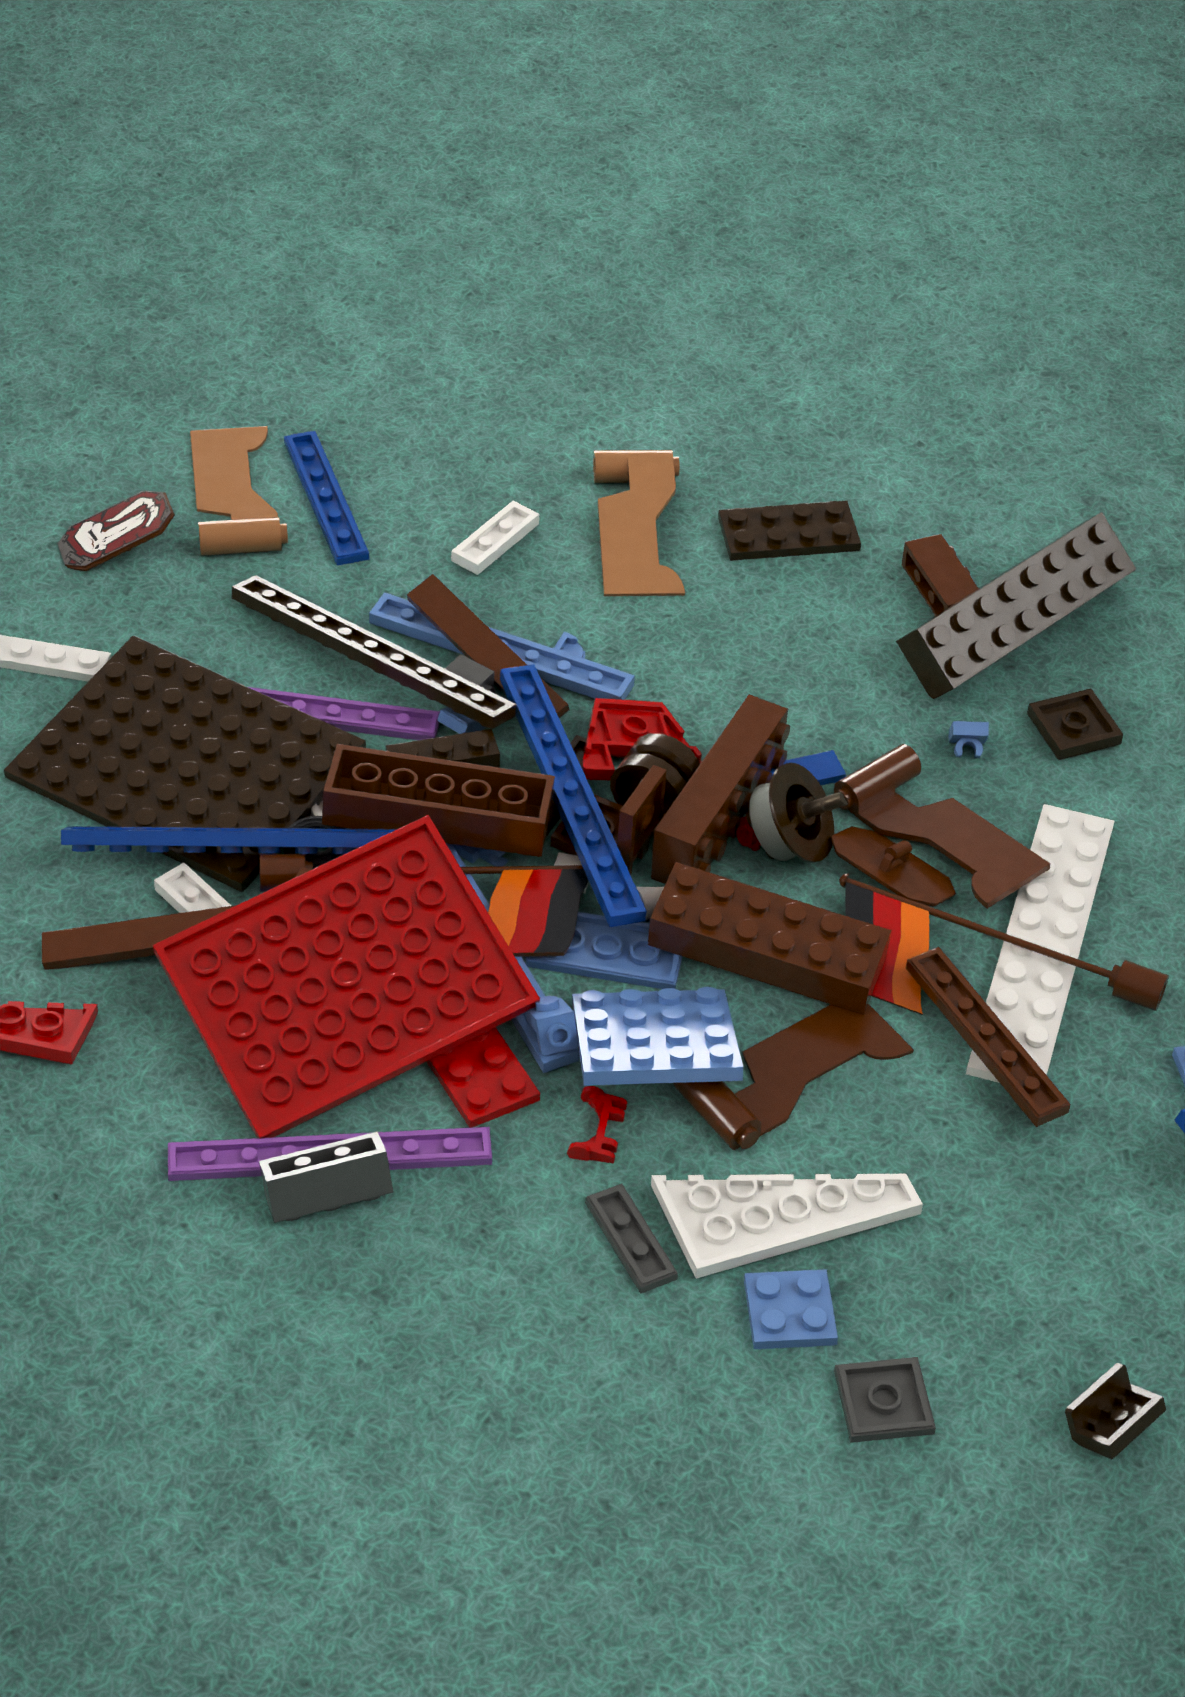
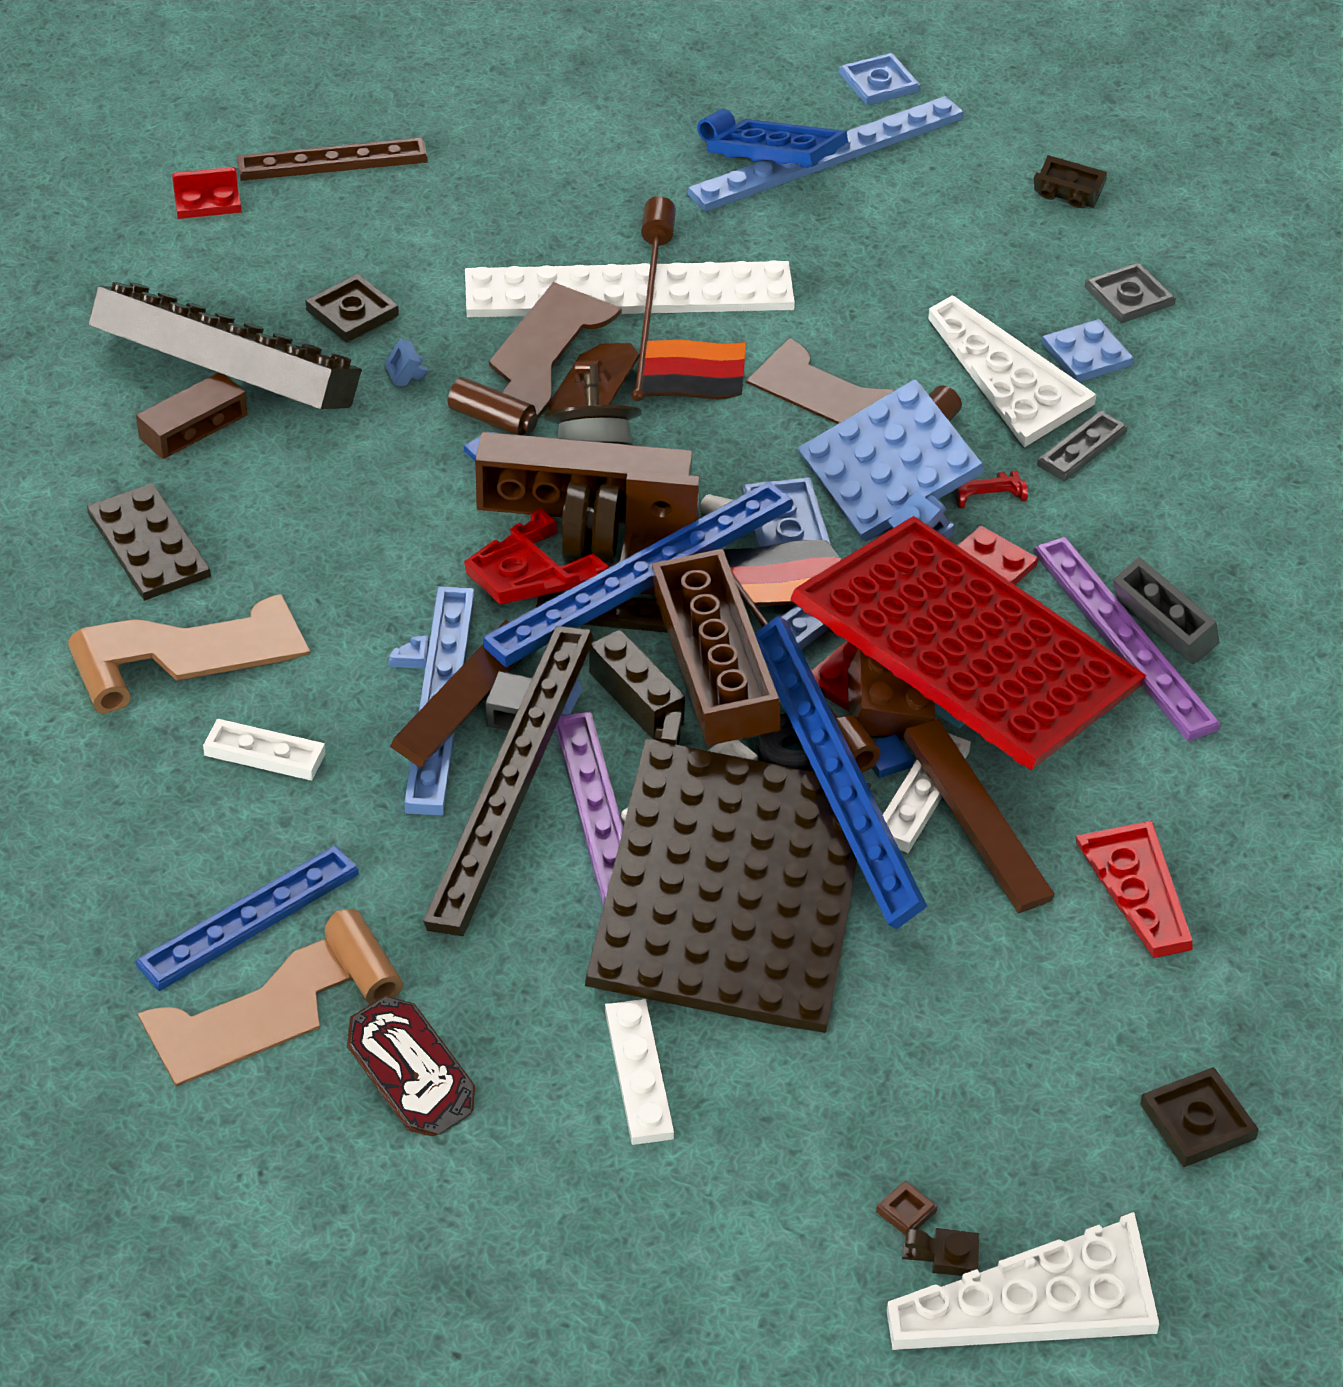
camera: 110 degrees left, 0 degrees up
(769, 937) = (742, 414): reddish brown brick -> none
(988, 1037) = (764, 288): reddish brown tile -> none

